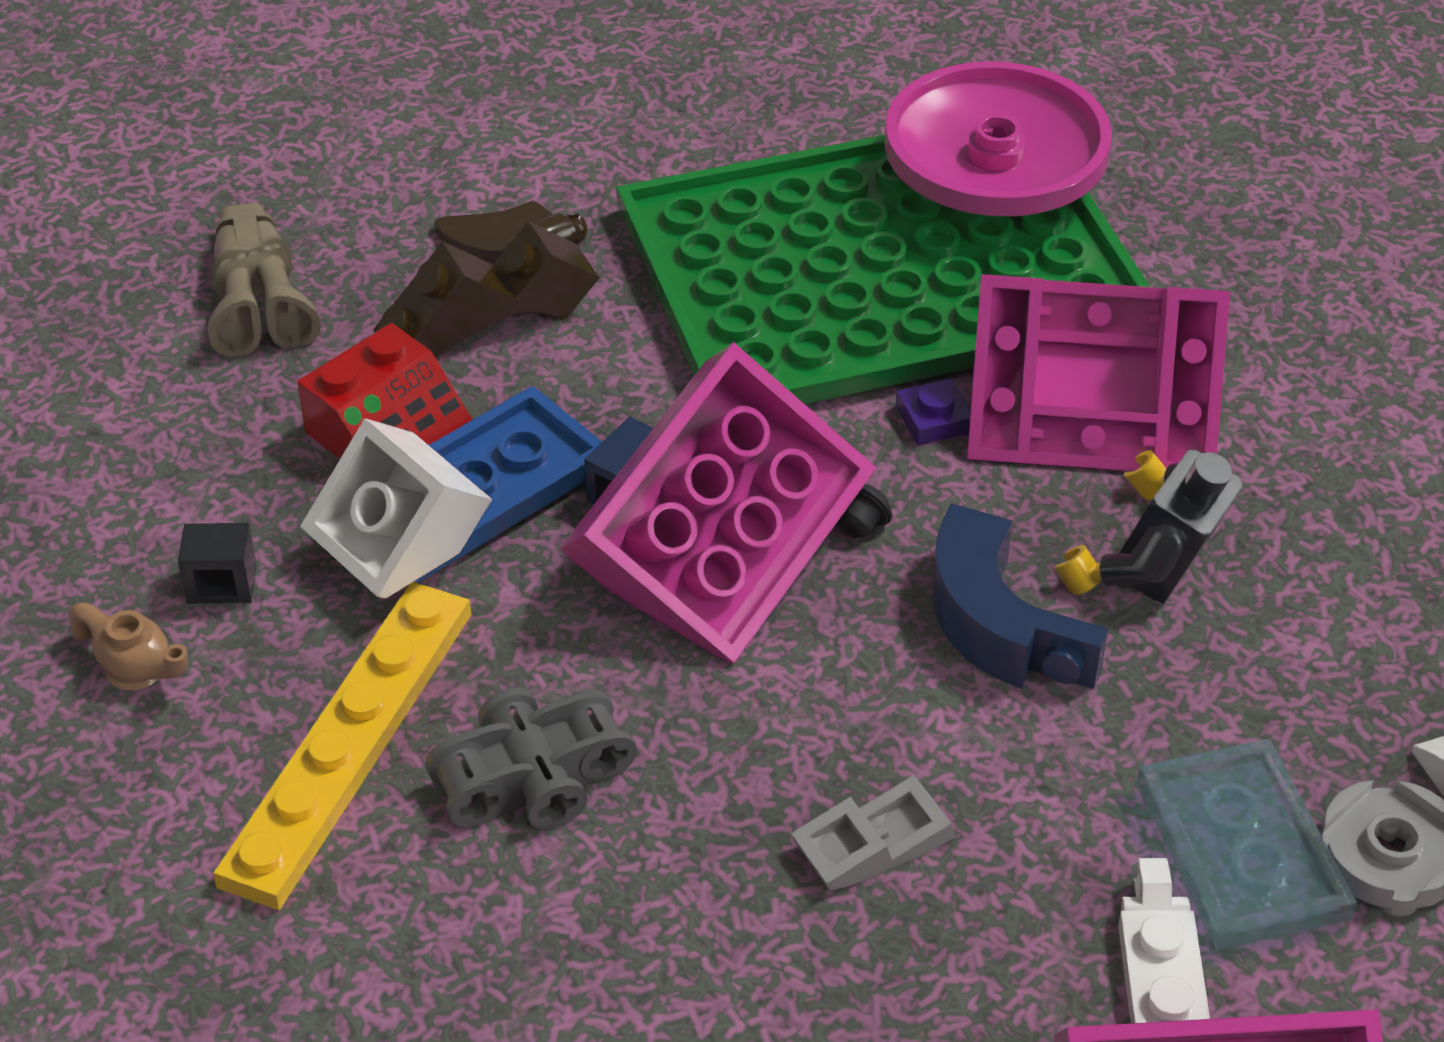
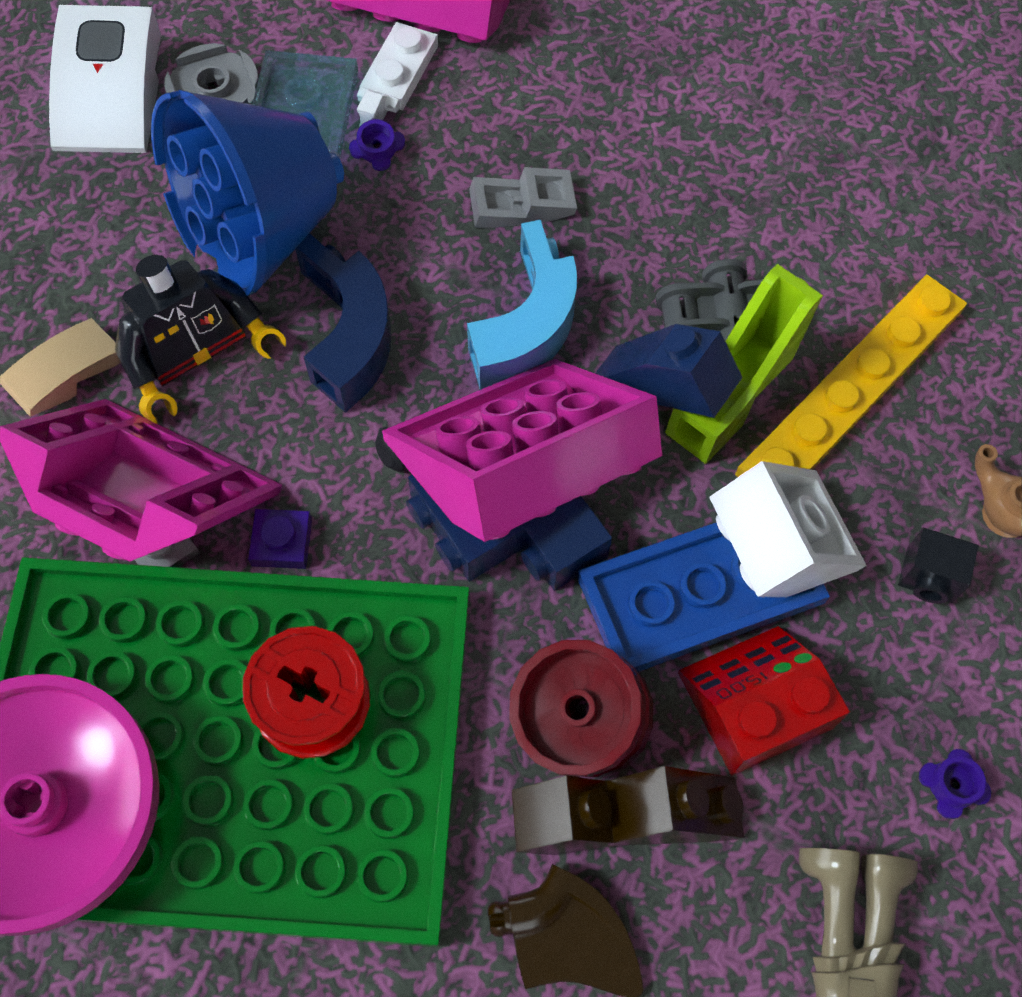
camera: 160 degrees left, 20 degrees up
(174, 410) = (972, 782): none -> dark purple plate
(502, 641) = (762, 347): none -> lime arch
(556, 328) = (546, 701): none -> dark red wheel
(588, 601) = (679, 365): none -> dark blue slope
(776, 645) = (538, 327): none -> medium azure arch
(817, 268) = (306, 657): none -> red piece
(1112, 838) = (375, 132): none -> dark purple plate
(1206, 621) = (242, 180): none -> blue cone
(1280, 478) = (55, 367): none -> tan slope

